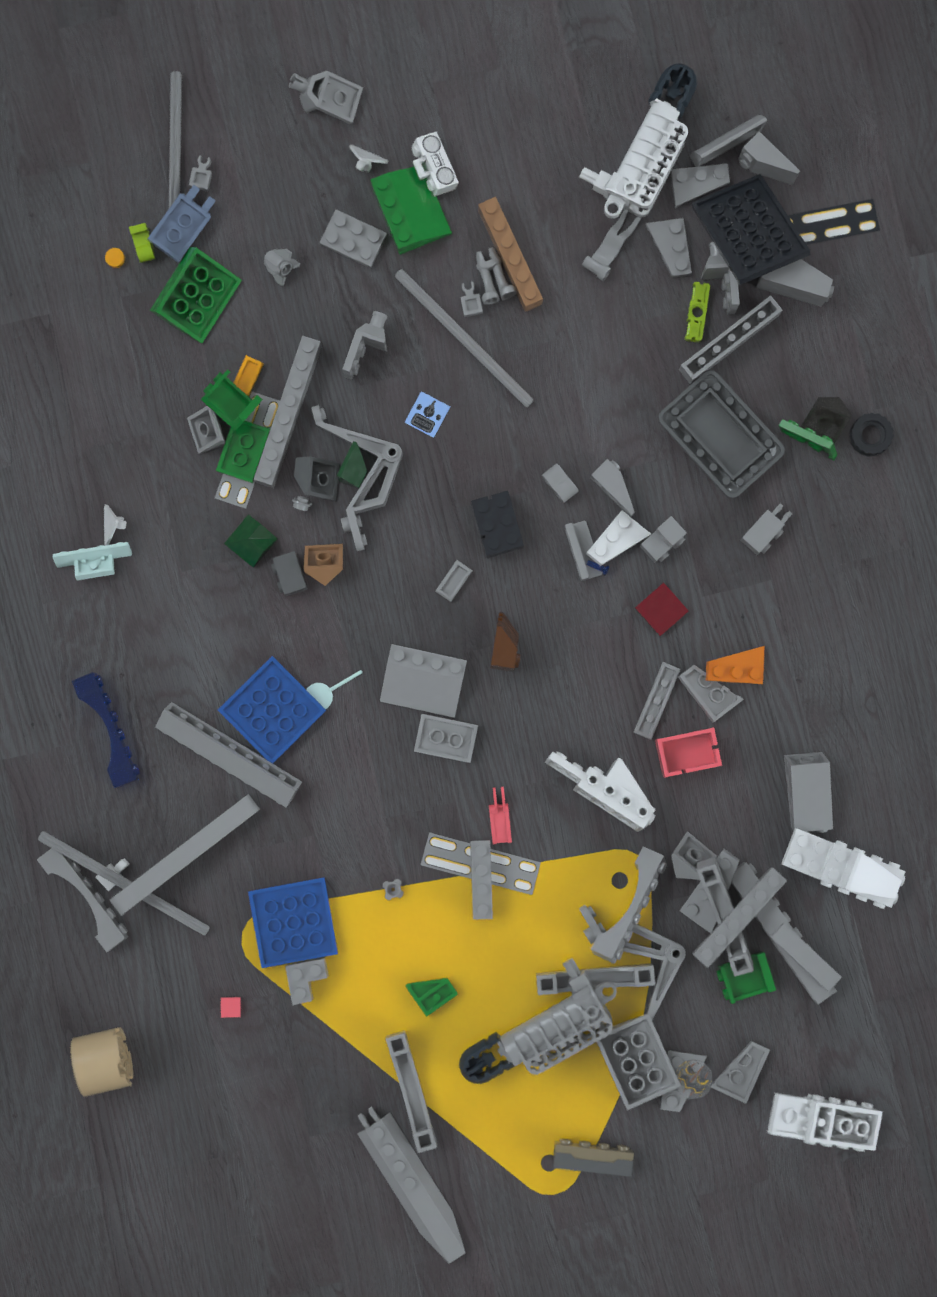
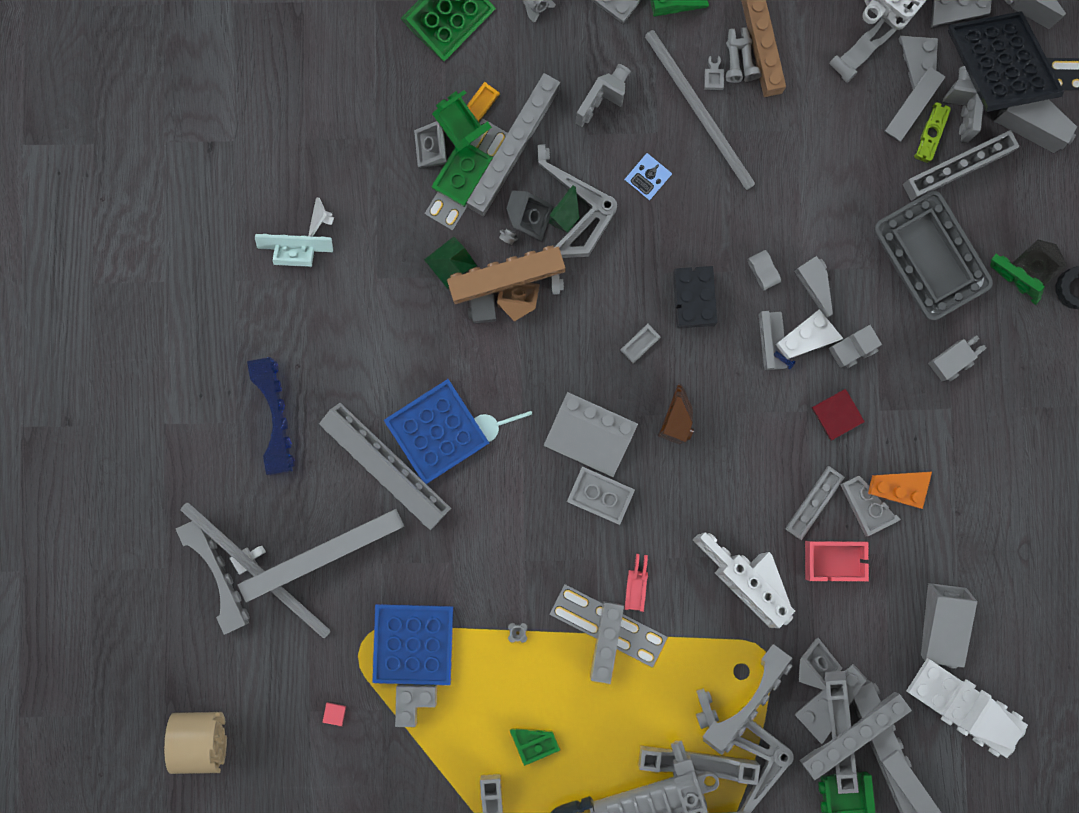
camera: 10 degrees right, 0 degrees up
(307, 542) = (506, 275): none -> medium nougat brick
(673, 288) = (914, 104): none -> light grey tile

